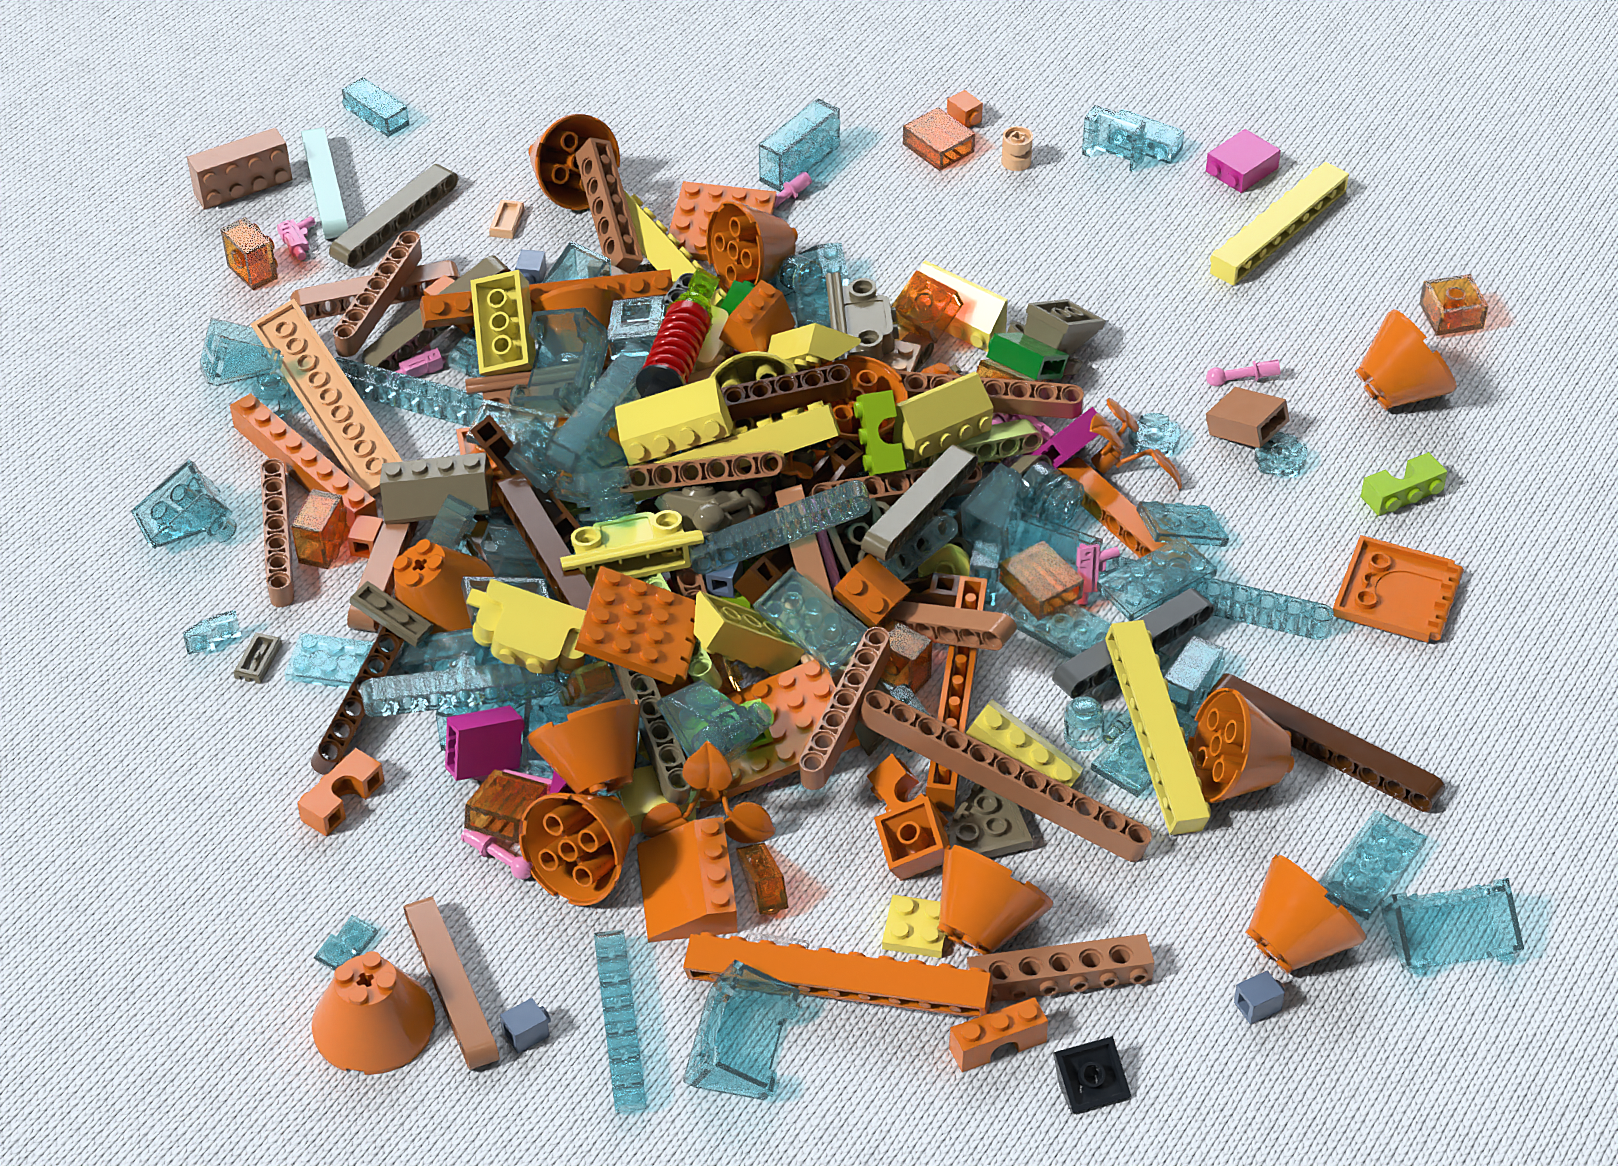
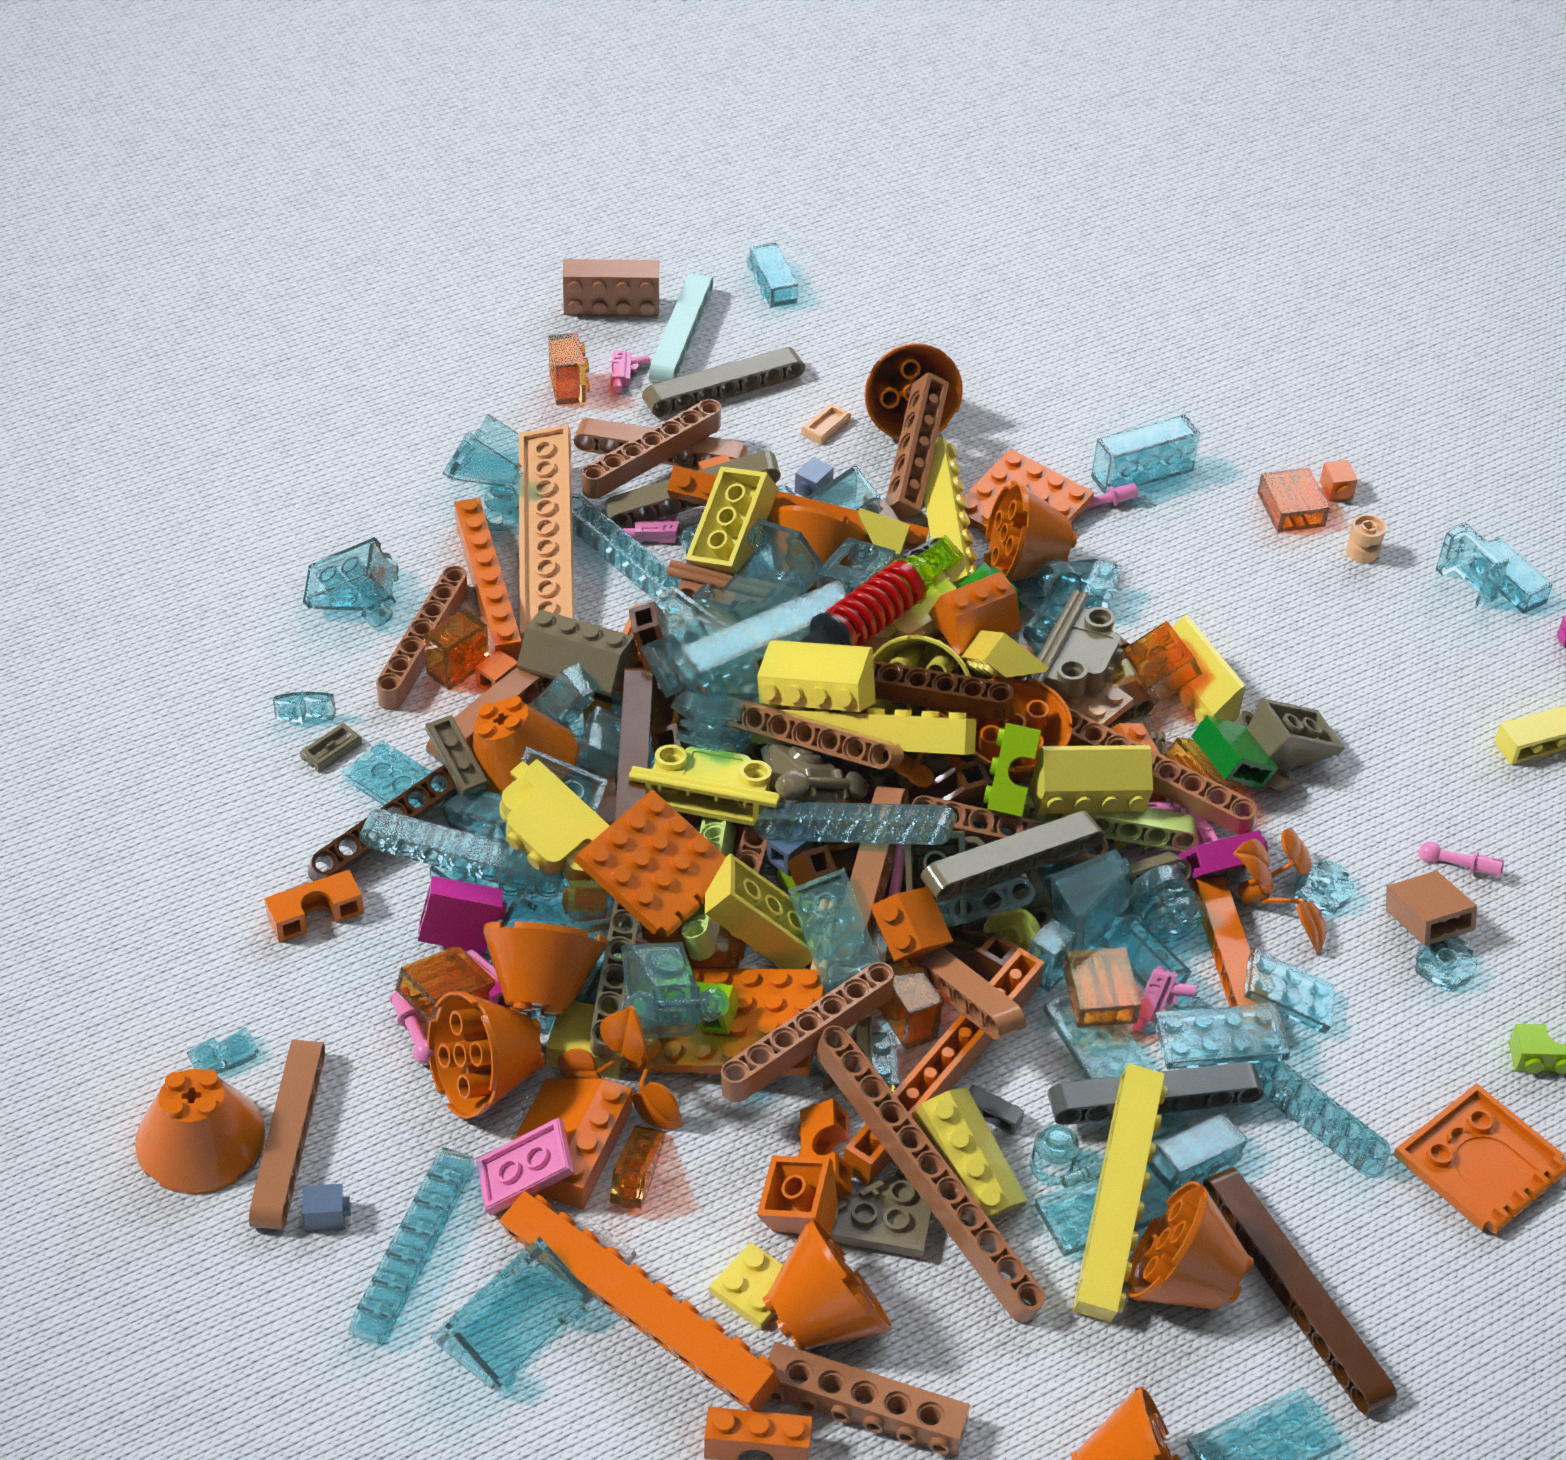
camera: 25 degrees right, 0 degrees up
(636, 283) = (884, 530): none -> light yellow slope
(673, 915) = (524, 1165): none -> bright pink tile
(1025, 710) = (996, 1110): none -> dark grey piece

